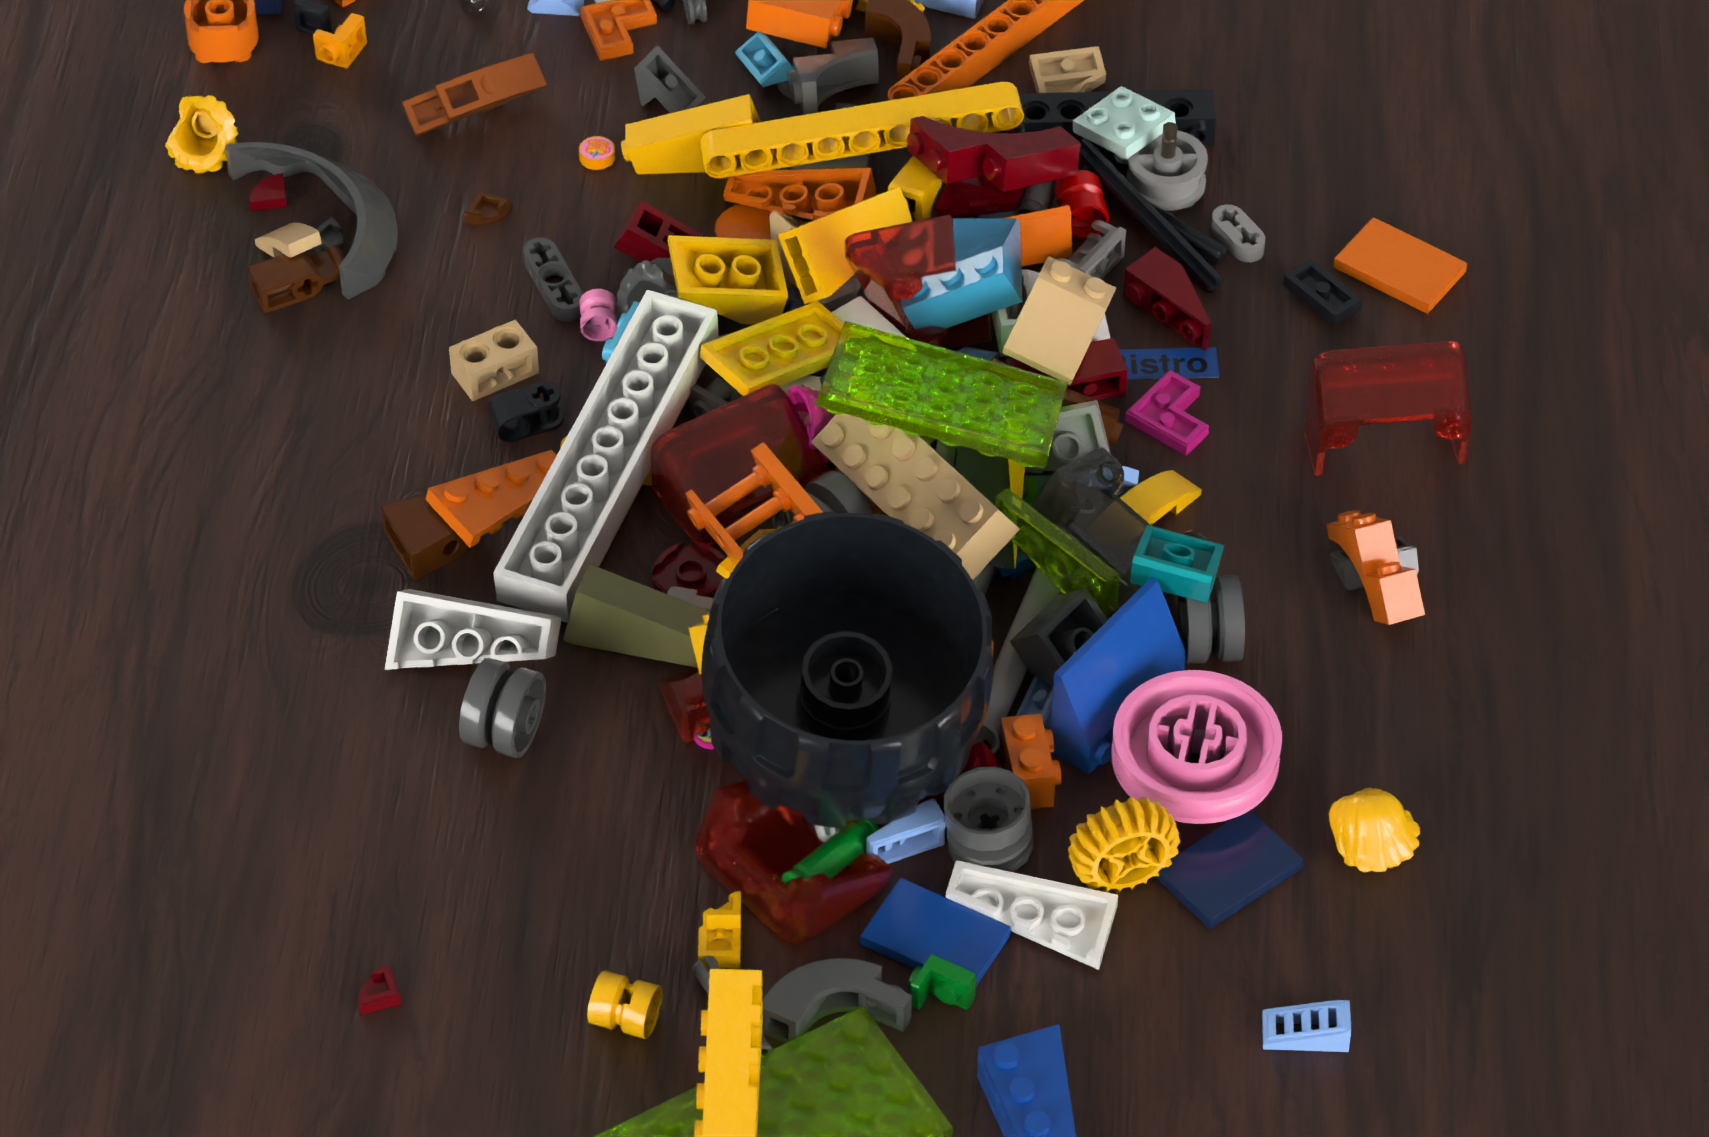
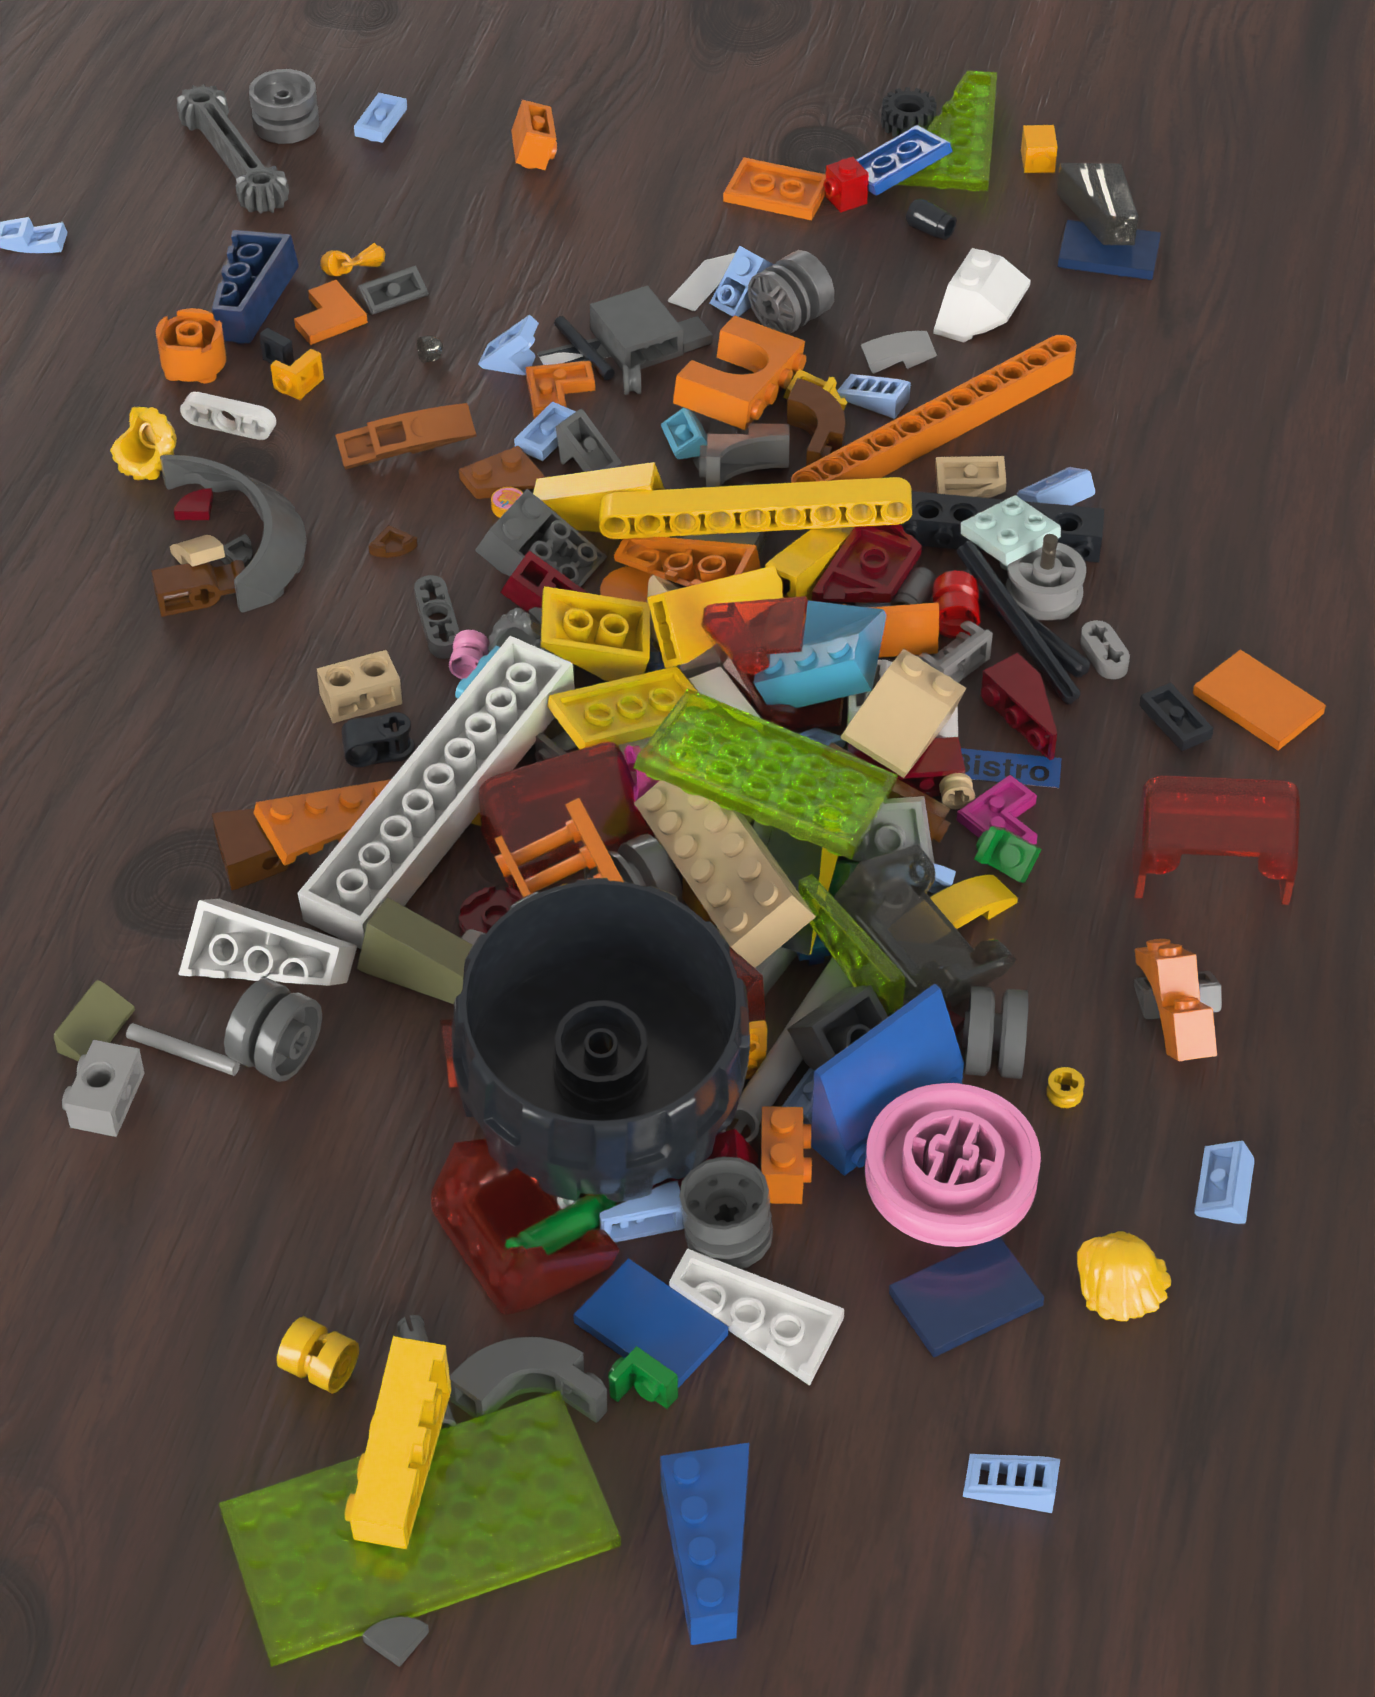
camera: 10 degrees right, 0 degrees up
(302, 105) = (250, 419): none -> white beam
(313, 727) = (95, 1017): none -> olive slope
(343, 786) = (103, 1088): none -> light grey brick
(379, 991) = (83, 1304): dark red tile -> none
(409, 740) = (182, 1049): none -> light grey bar
(582, 120) = (501, 470): none -> dark orange wing
(617, 73) = (540, 435): none -> light blue plate
(634, 176) = (538, 529): none -> dark grey slope
(722, 933) = (437, 1292): yellow slope -> none
(1003, 158) = (882, 550): dark red arch -> none
(1121, 391) = (964, 790): none -> tan bush
(1124, 844) = (857, 1257): yellow gear -> none
(1162, 72) = (1060, 488): none -> light blue slope
(1178, 562) = (964, 971): teal slope -> none
(1184, 446) = (1007, 853): none -> green bracket
(1281, 674) = (1062, 1098): none -> yellow bush
(1453, 732) = (1225, 1182): none -> light blue slope

